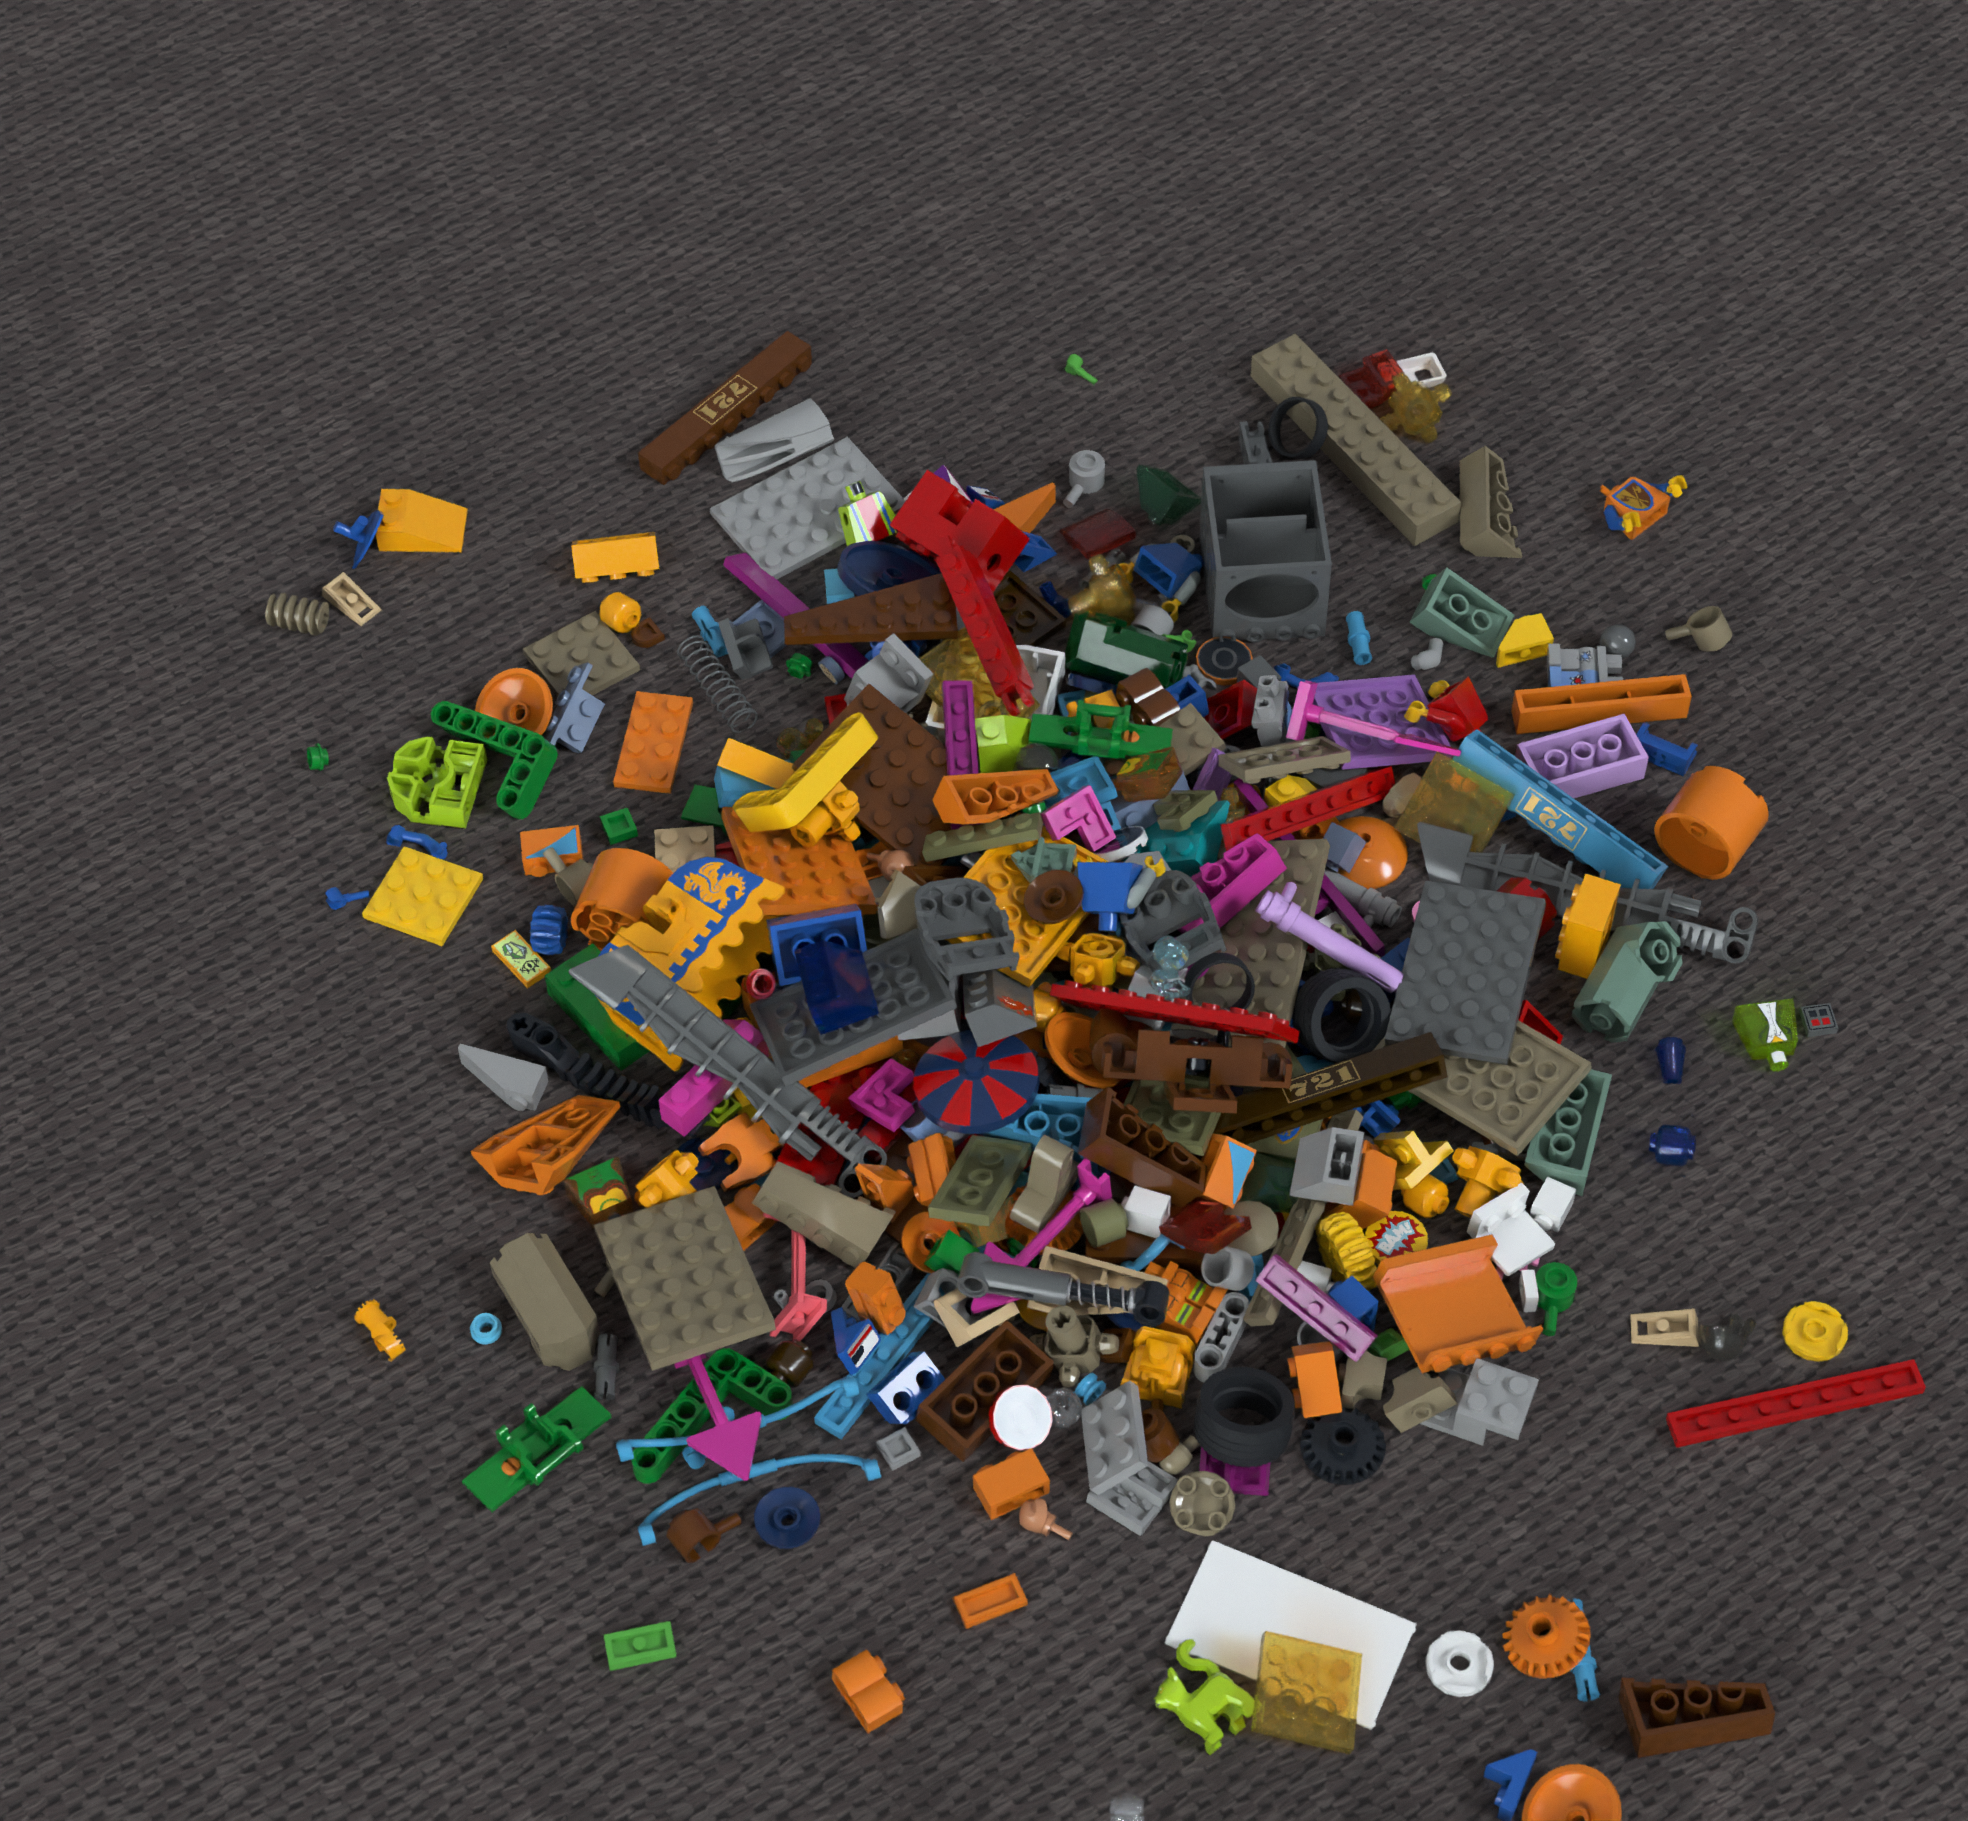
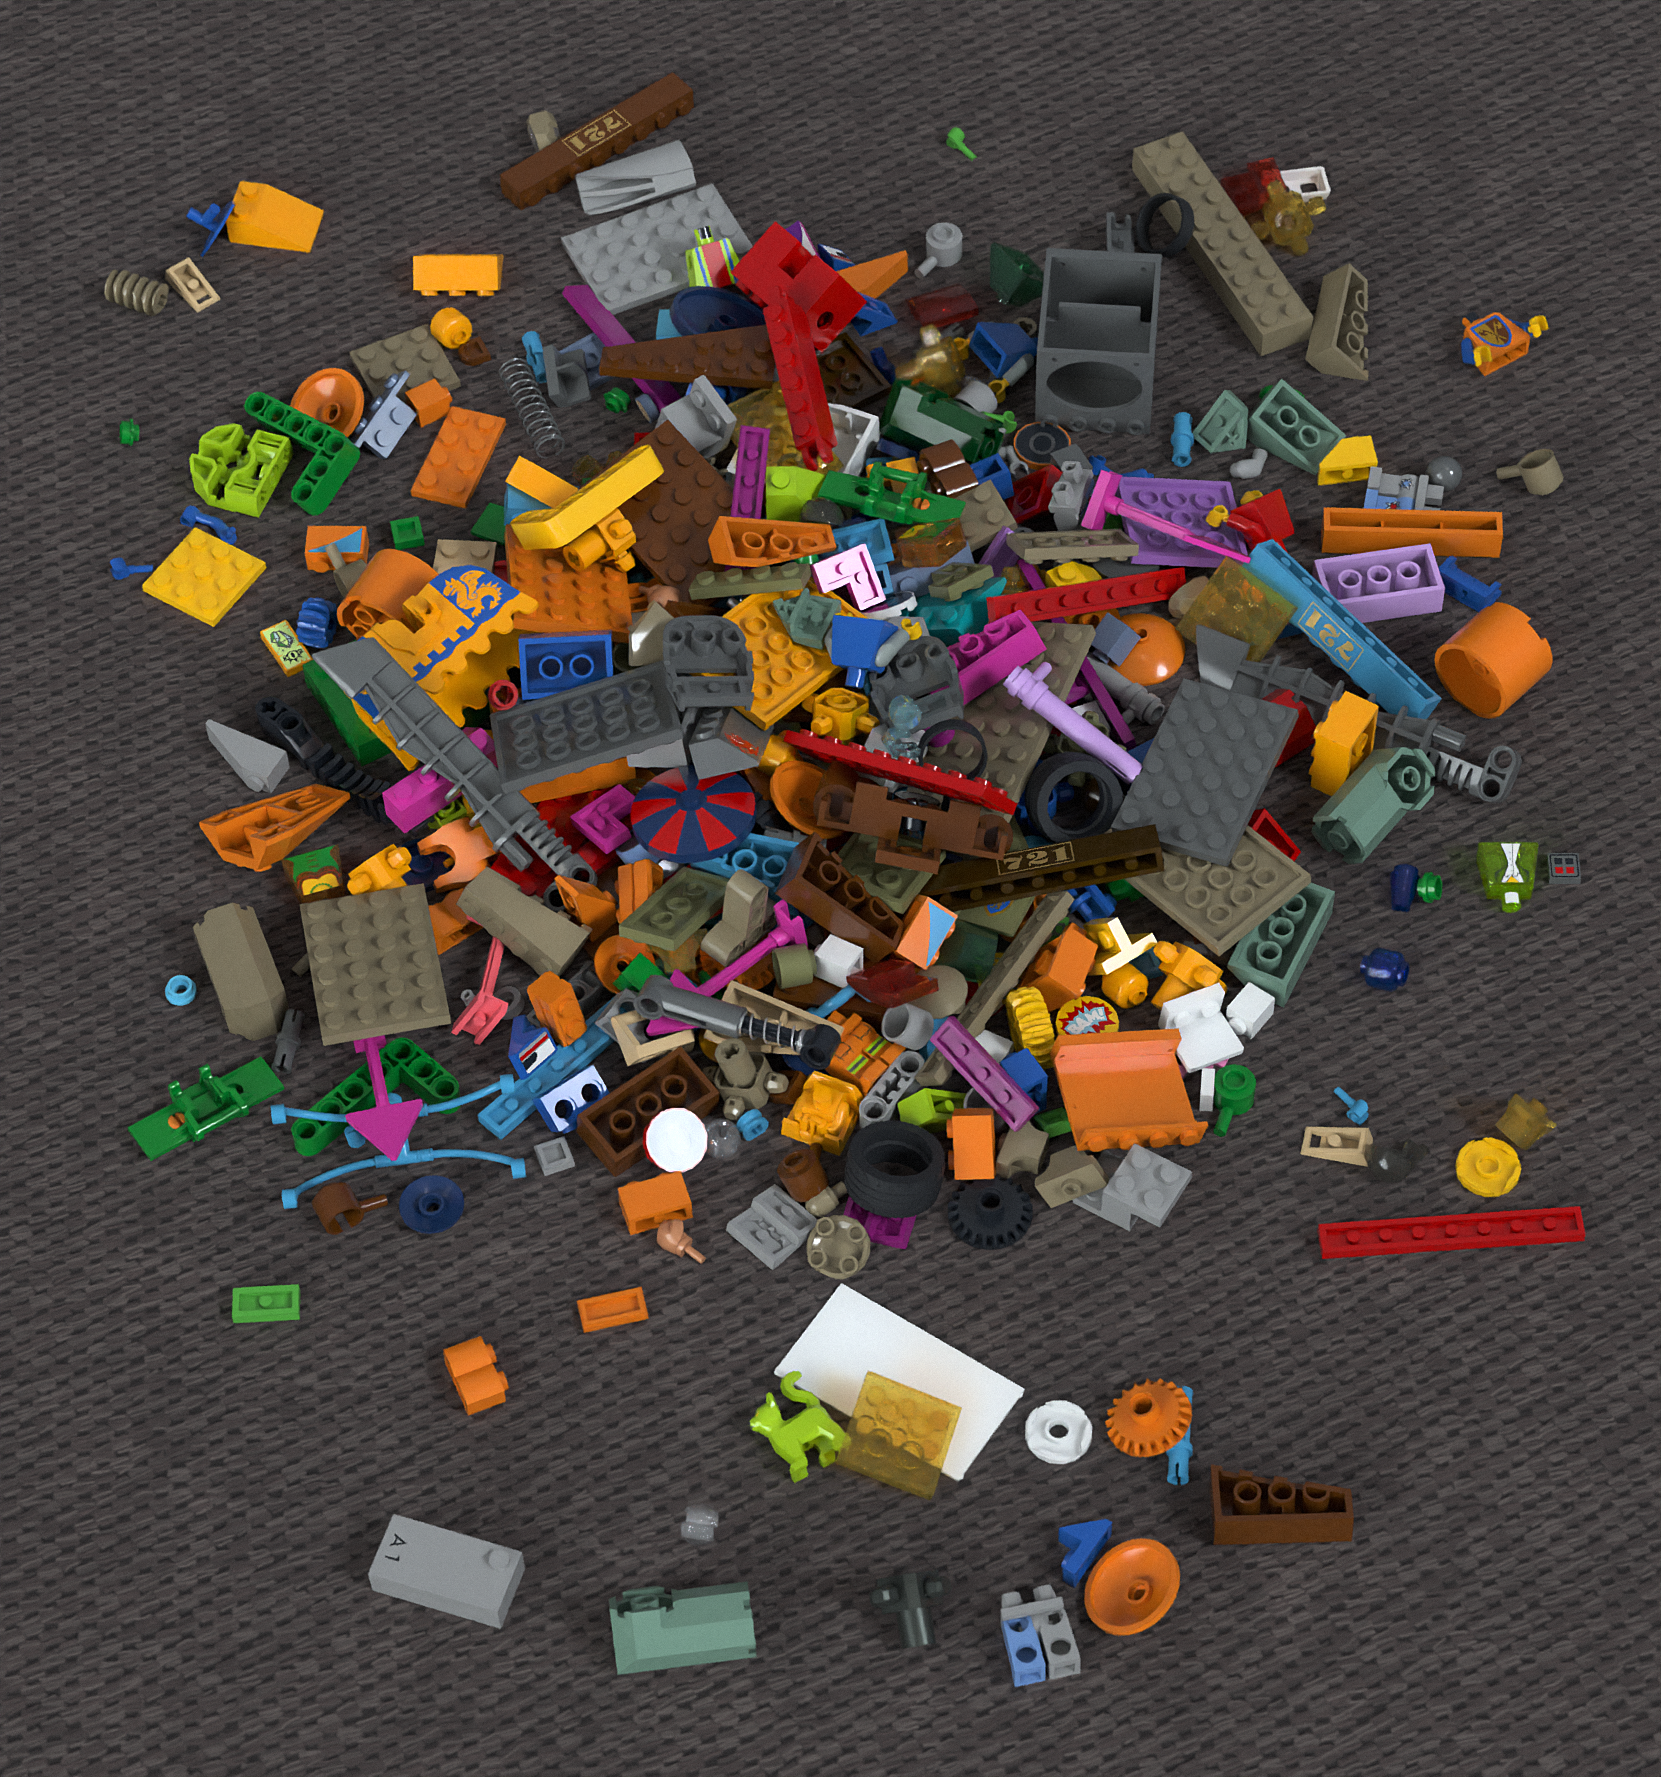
camera: 10 degrees right, 0 degrees up
(380, 1327) = (80, 976): light orange connector -> none
(614, 690) = (429, 402): none -> orange brick
(669, 403) = (542, 129): none -> dark tan rock
(790, 1362) = (465, 1060): dark brown head -> none
(835, 985) = (571, 702): clear blue slope -> none
(1049, 888) = (805, 646): reddish brown dish -> none
(1114, 1437) = (762, 1171): light grey plate -> none
(1266, 1349) = (930, 1108): none -> lime slope
(1328, 1166) = (1025, 940): light grey slope -> none
(1398, 620) = (1224, 425): none -> sand green slope
(1678, 1289) = (1358, 1109): none -> dark azure hand
(1697, 1056) = (1430, 887): none -> green plate
(1843, 1281) = (1525, 1121): none -> clear yellow brick

